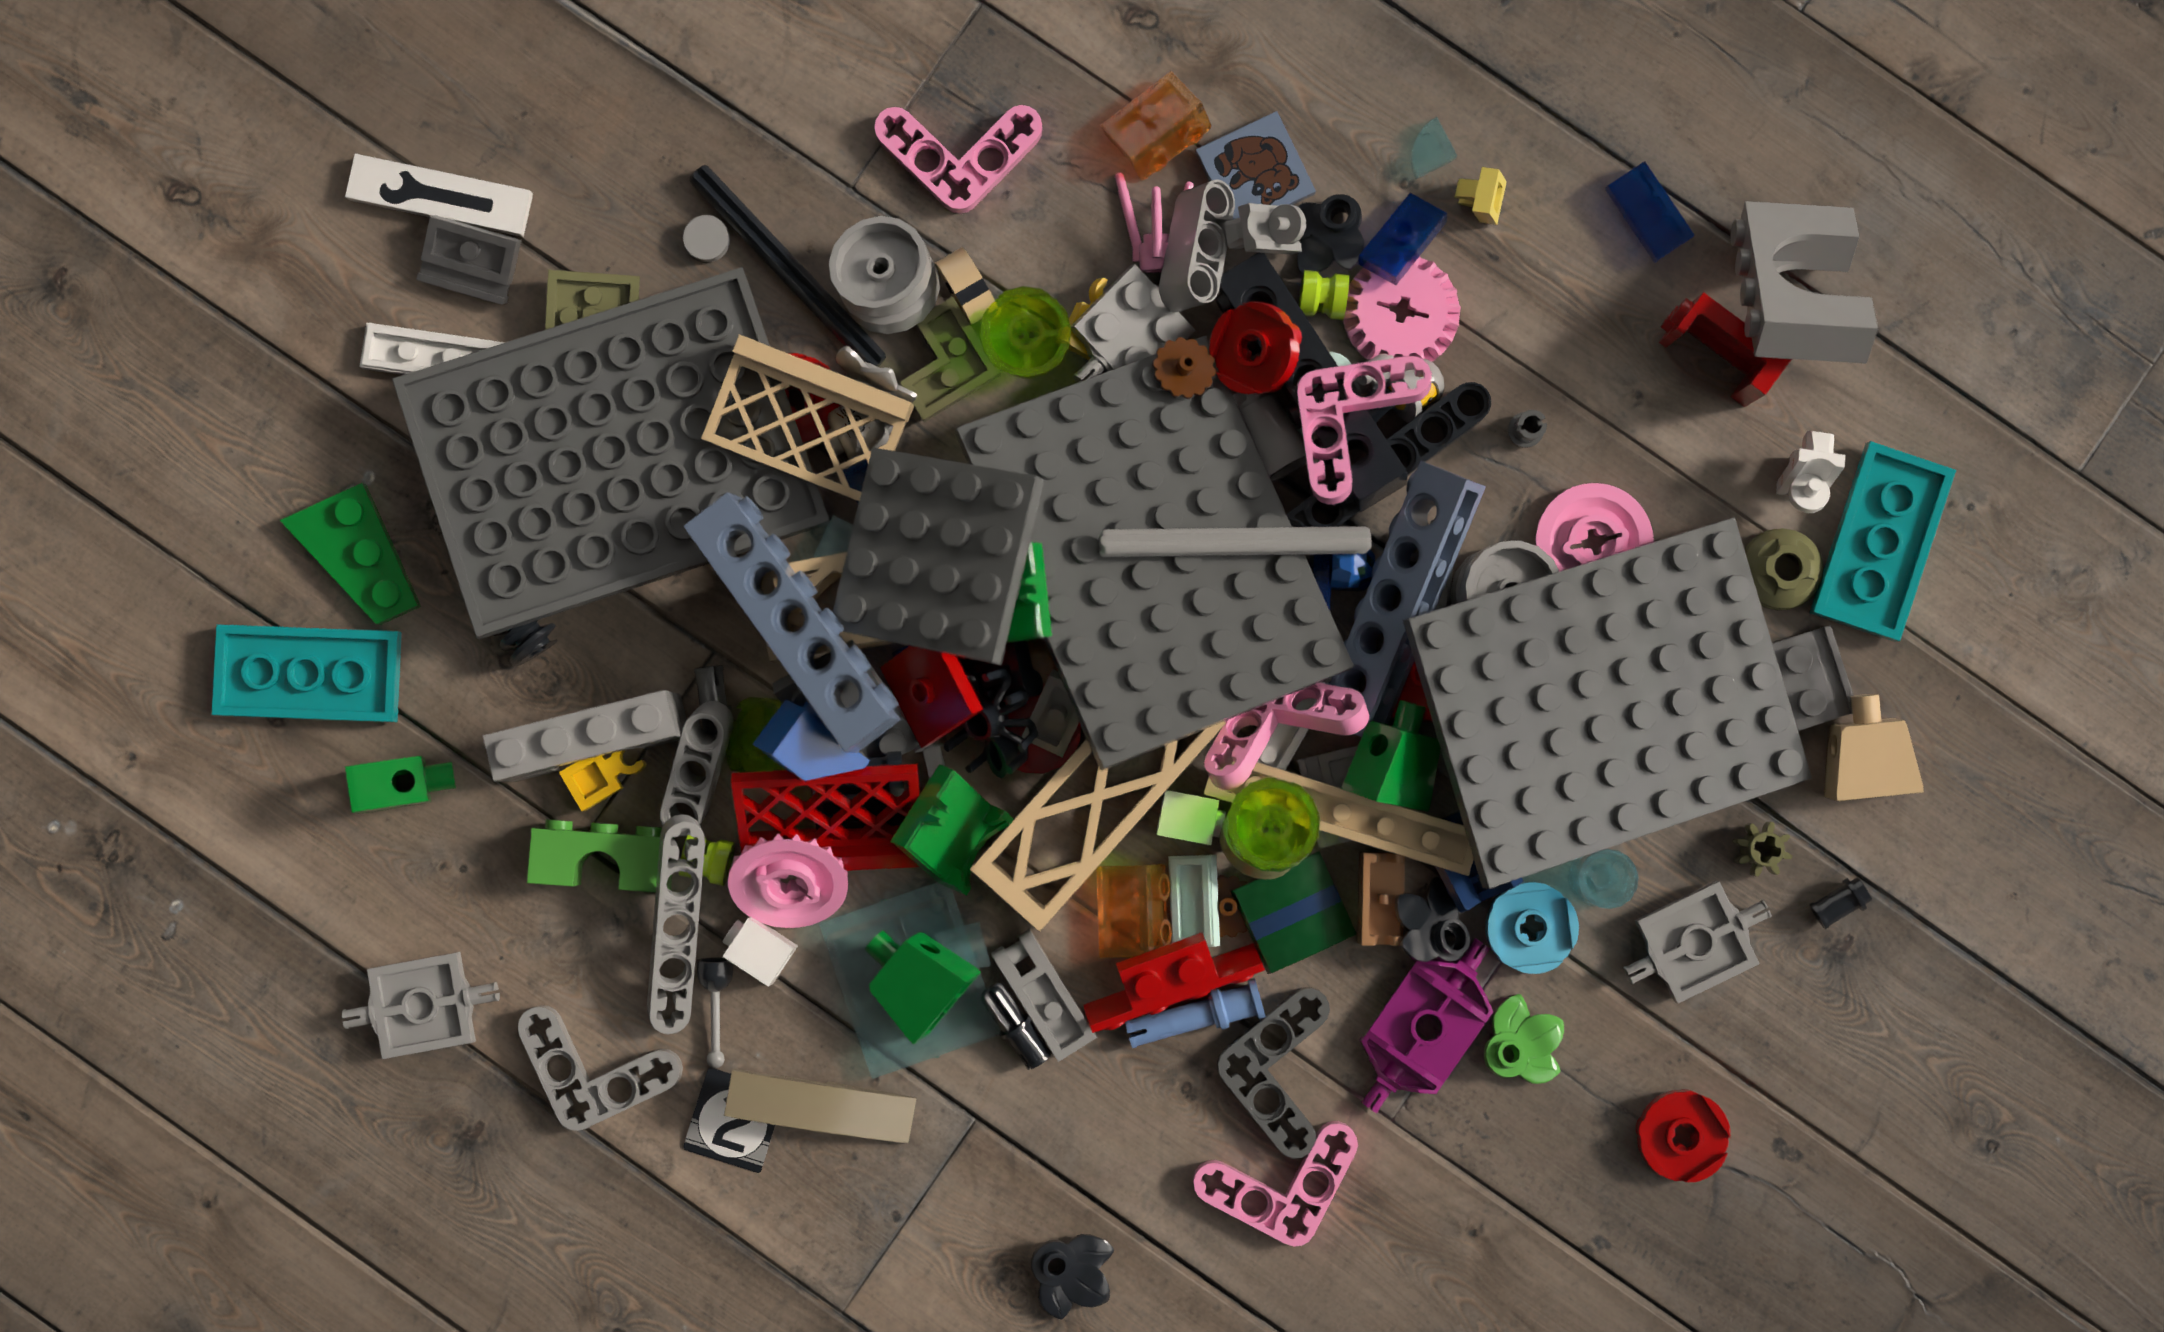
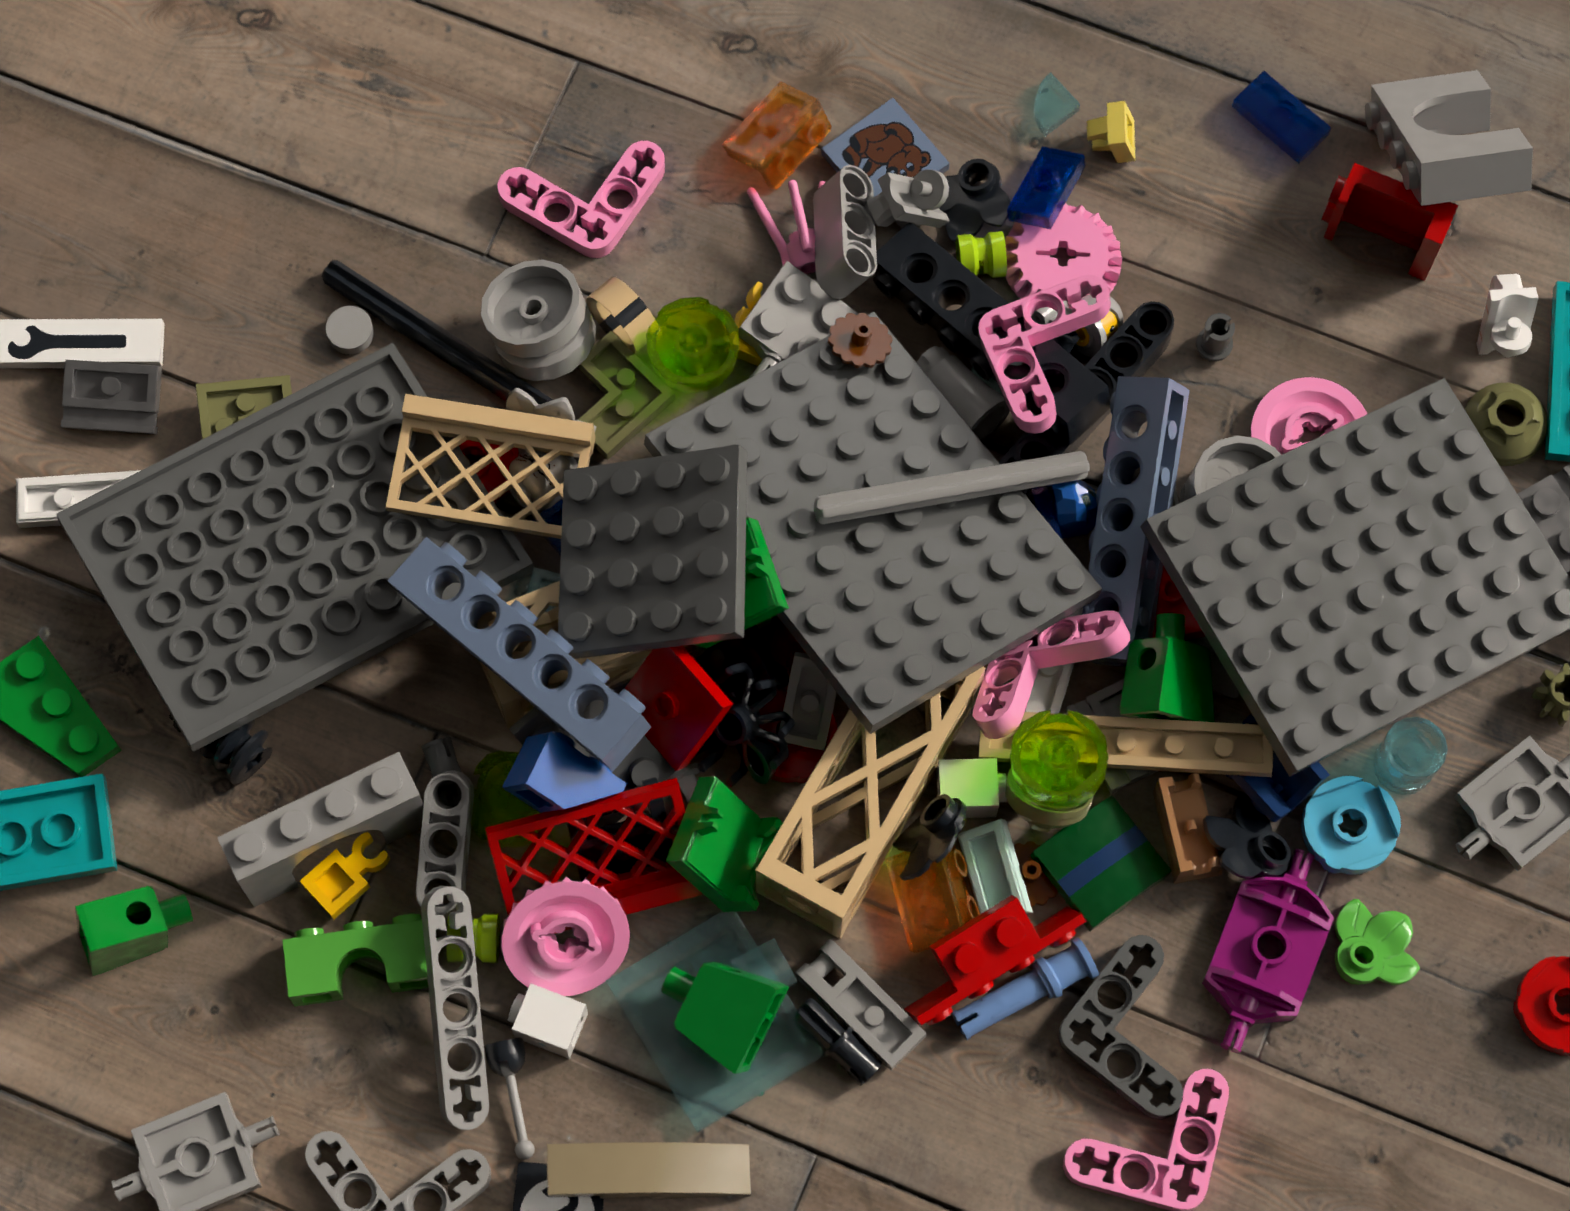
camera: 15 degrees left, 15 degrees down
(1141, 864) = (931, 835): none -> black plate
(1279, 345) = (951, 310): red plate -> none

